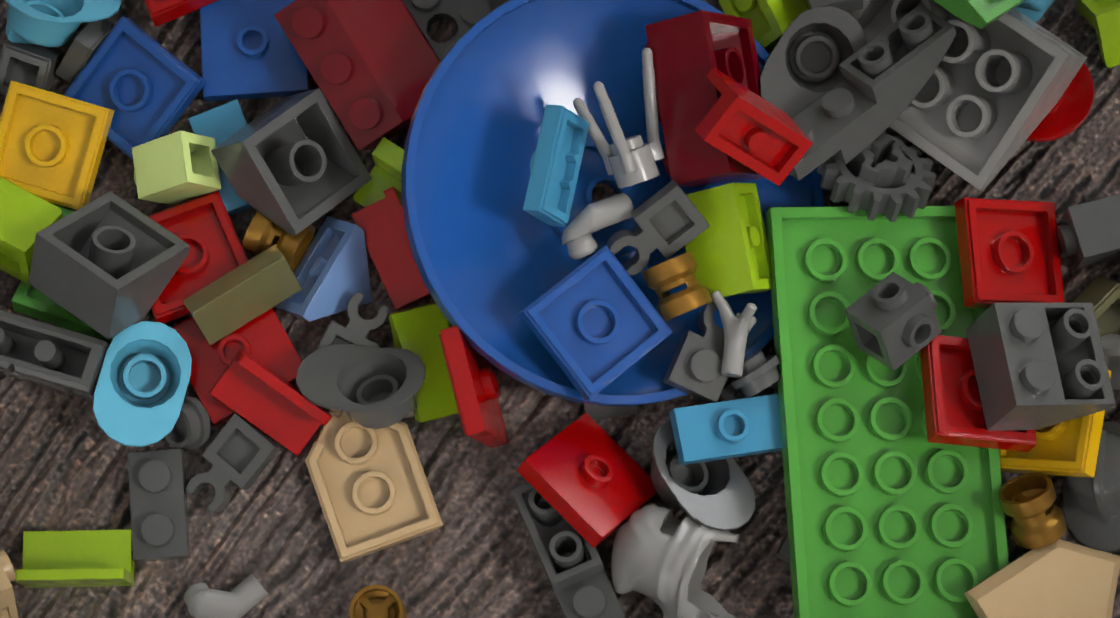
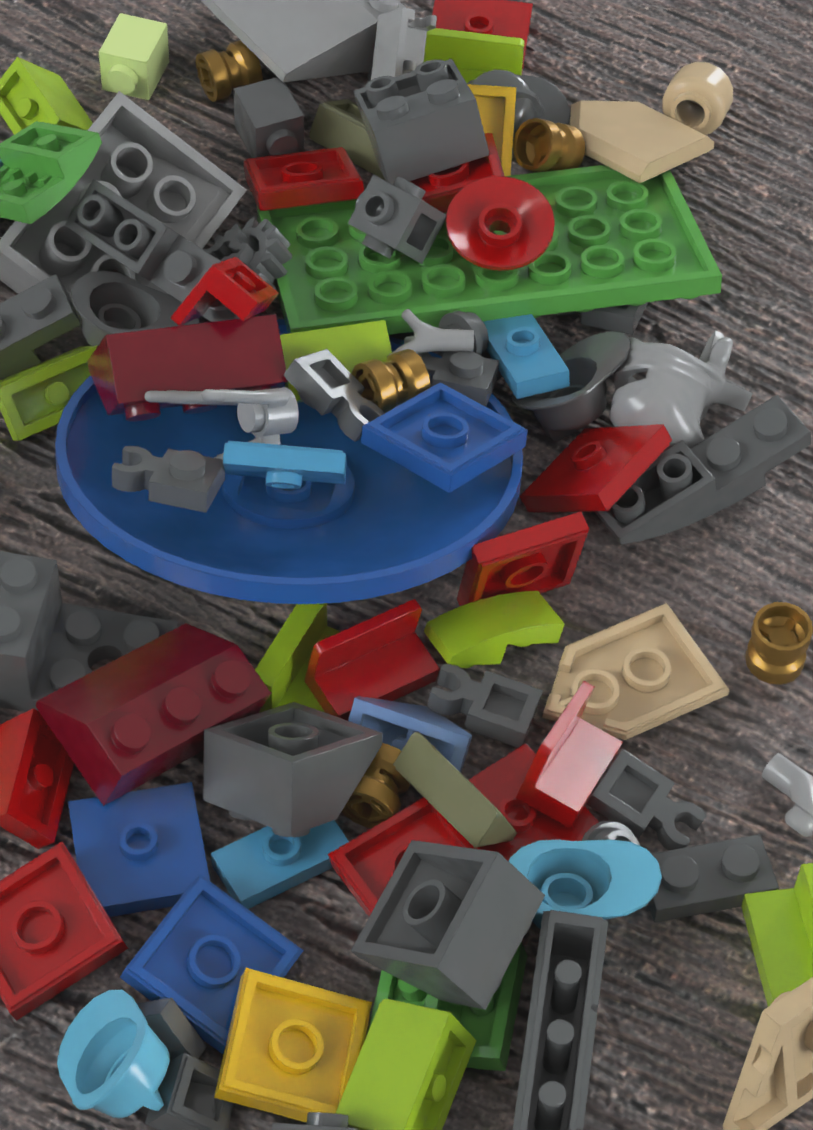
camera: 105 degrees left, 25 degrees down
(175, 168) = (311, 894): yellowish green brick -> none
(365, 381) = (536, 655): dark grey piece -> none
(556, 73) = (177, 479): none -> dark grey plate
(593, 218) = (327, 434): light grey arm -> none
(874, 396) = (503, 206): none -> red dish

